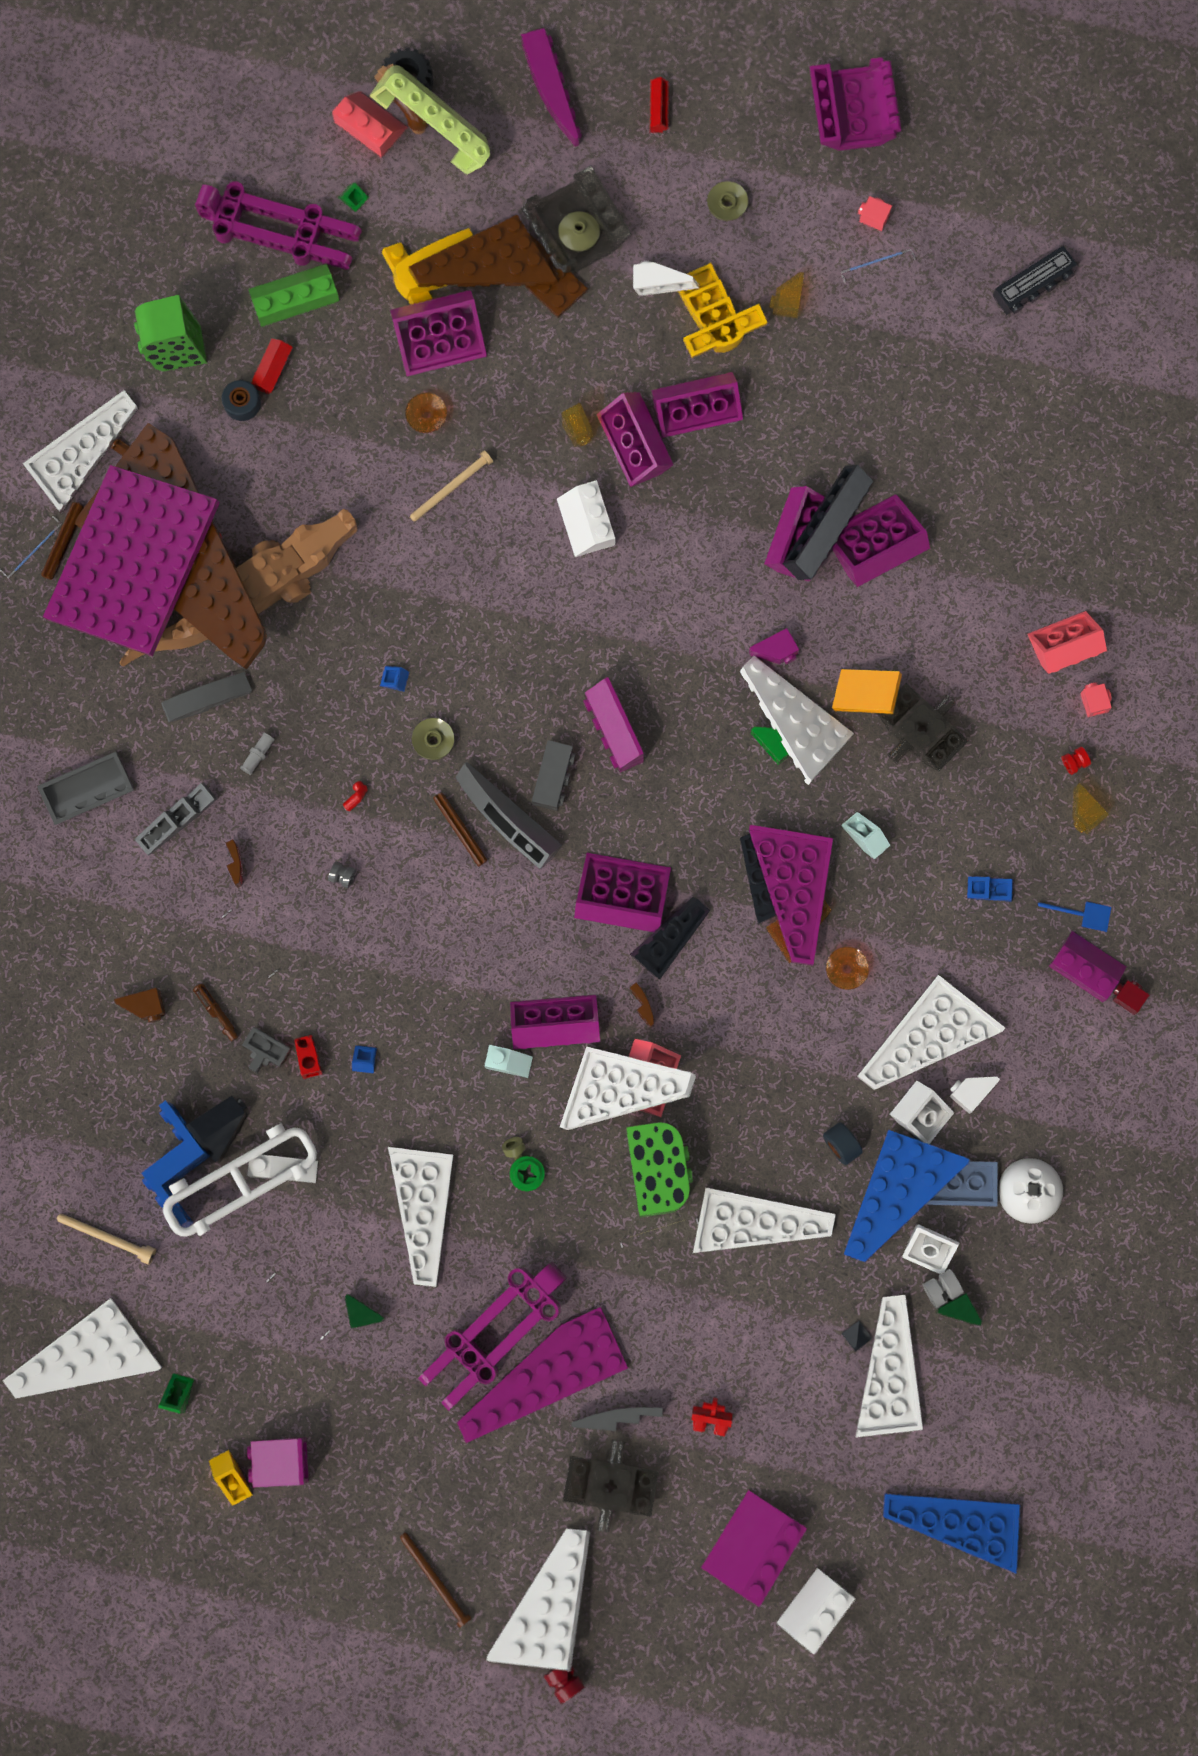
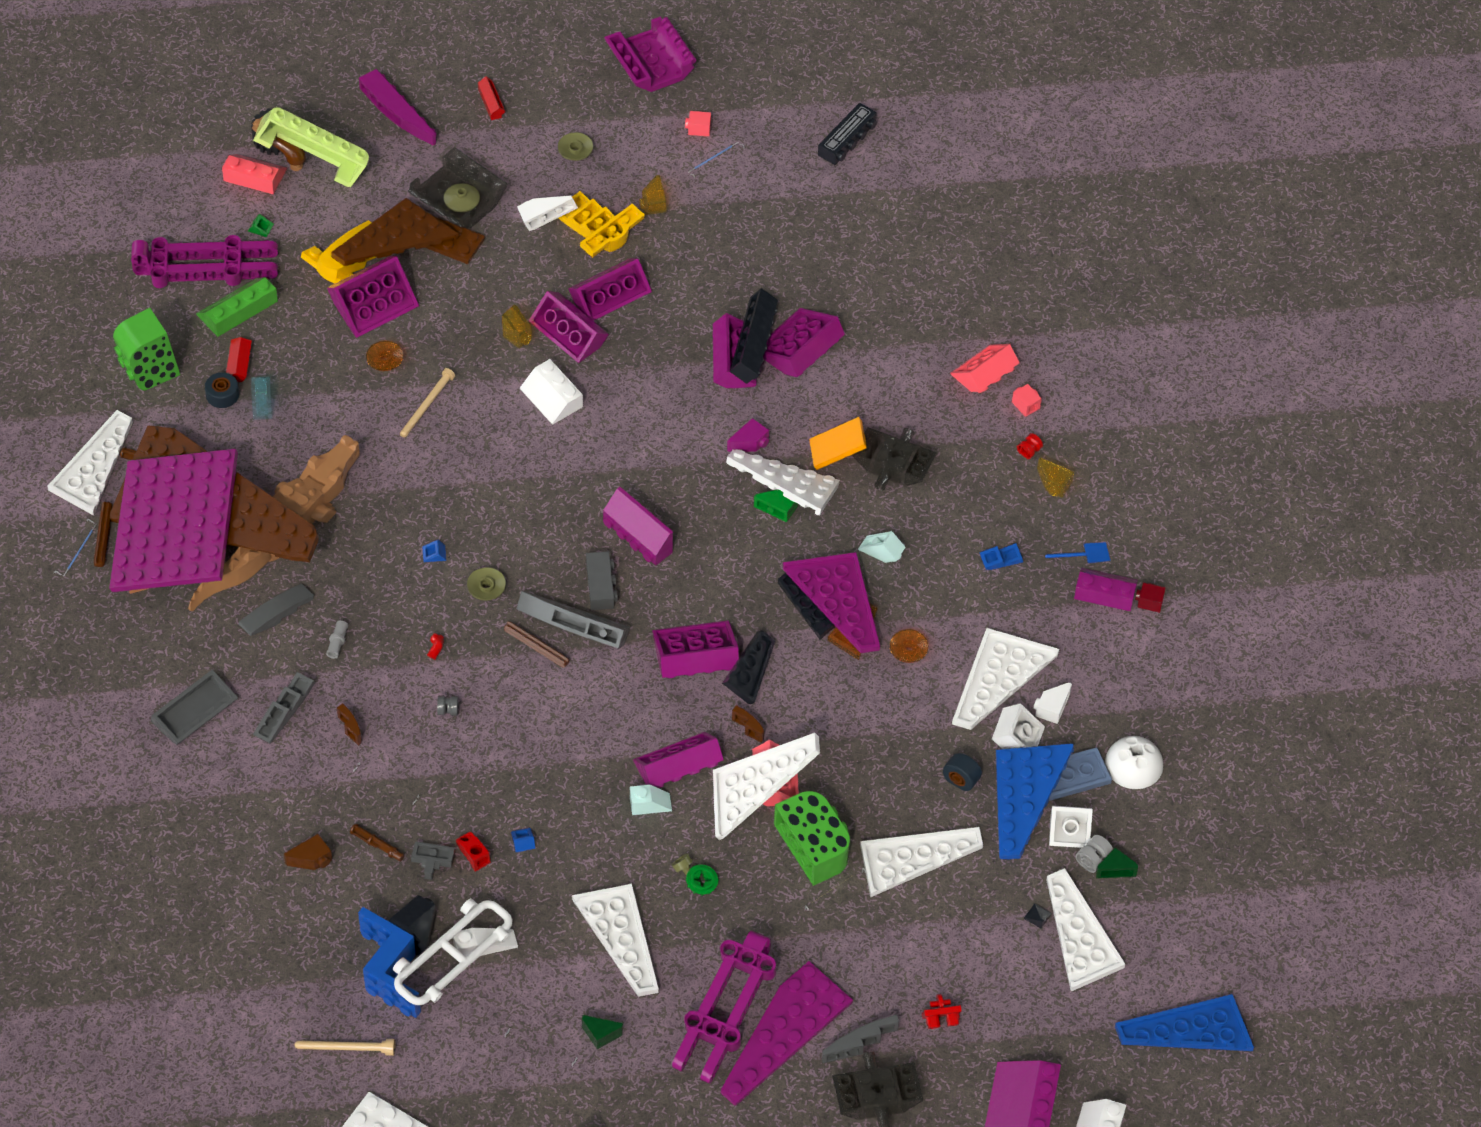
camera: 25 degrees left, 25 degrees down
(278, 424) = (261, 397): none -> clear light blue slope

